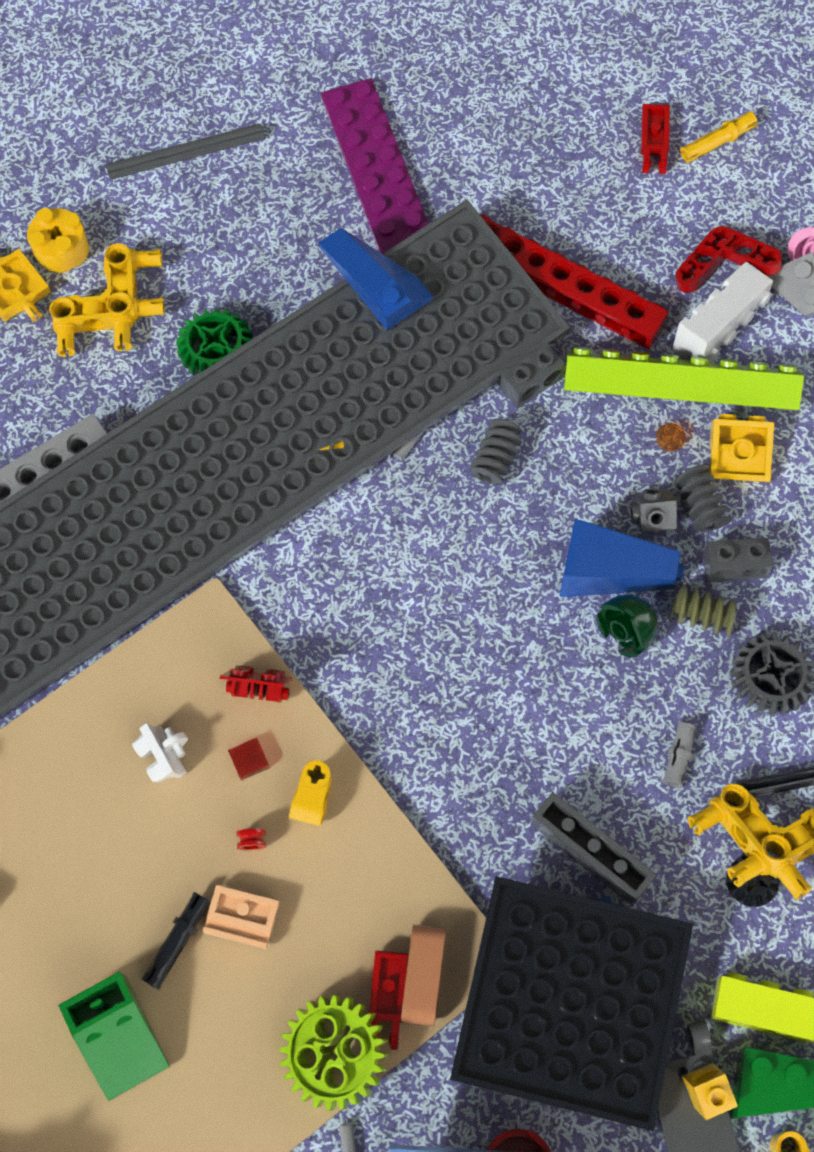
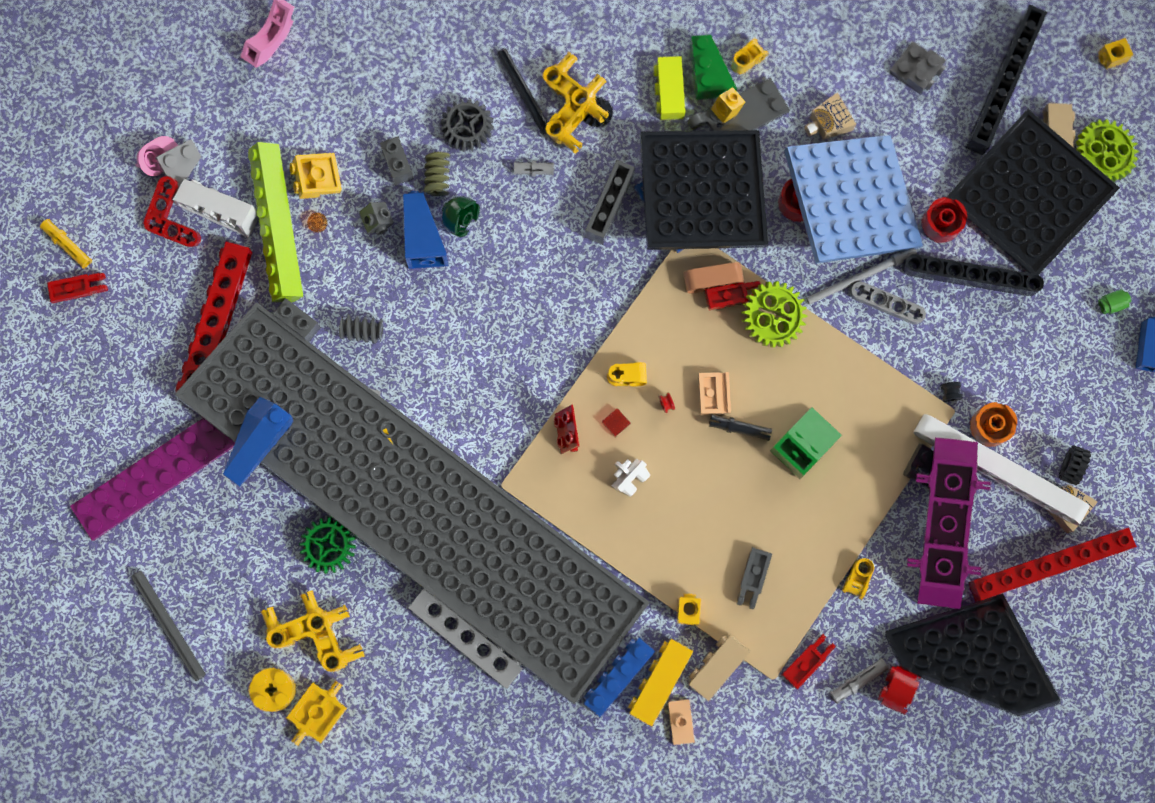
camera: 115 degrees left, 10 degrees up
(700, 501) = (359, 190): dark grey piece -> none

